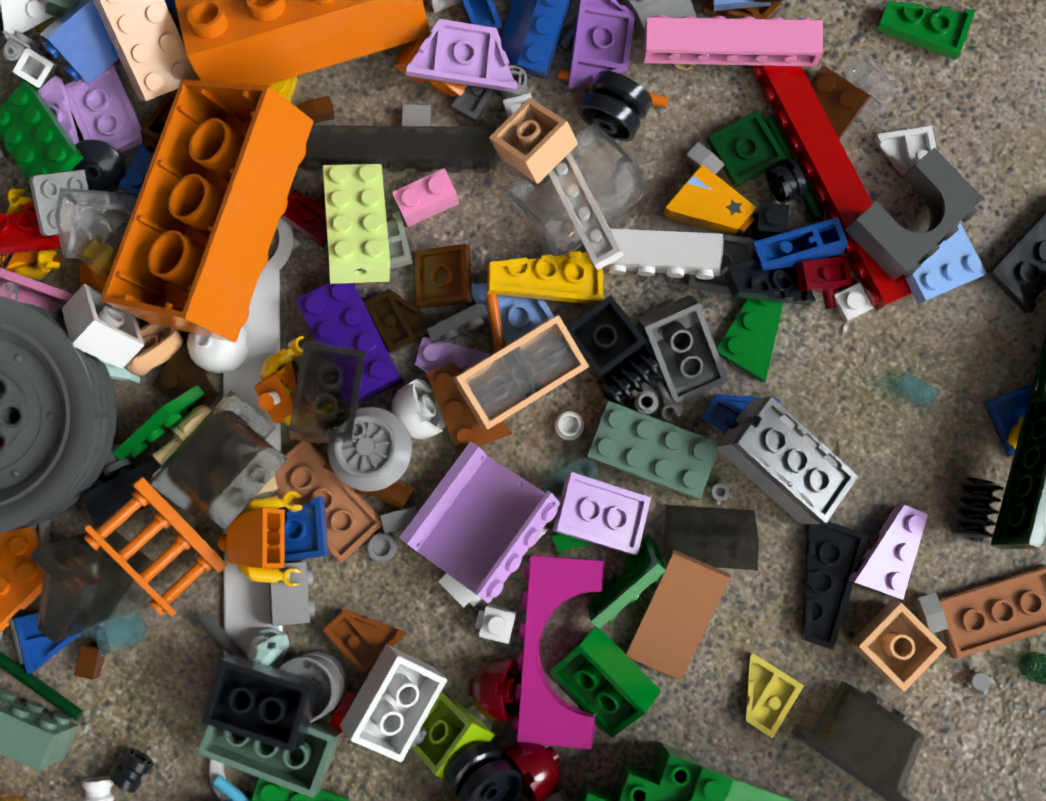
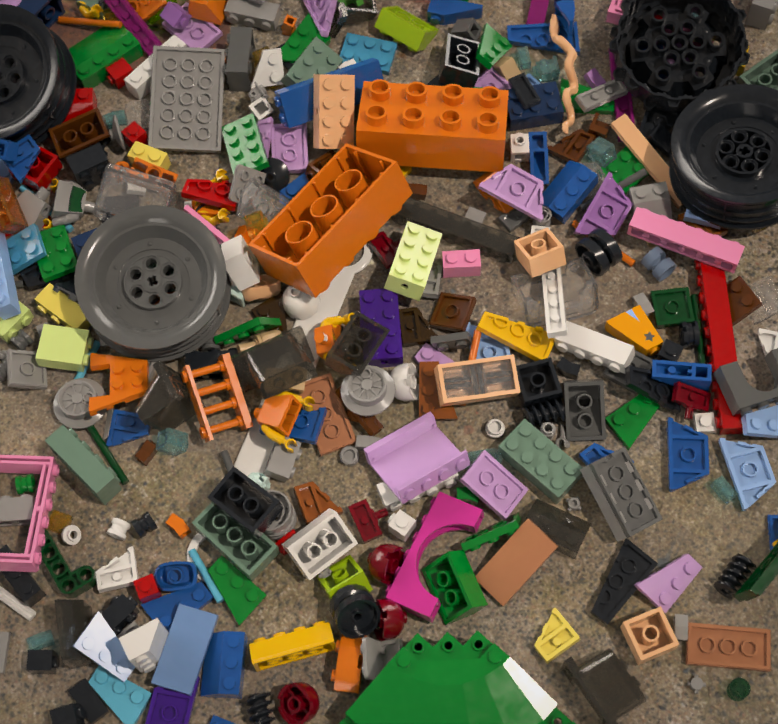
camera: 20 degrees right, 15 degrees down
(181, 749) = (178, 525): none -> orange piece
(444, 634) = (367, 520): none -> dark red plate
(637, 297) = (568, 368): none -> black piece
(704, 90) = (658, 263): none -> sand blue wheel
(846, 360) = (686, 455): none -> blue wing
(938, 349) = (748, 470): none -> light blue wing

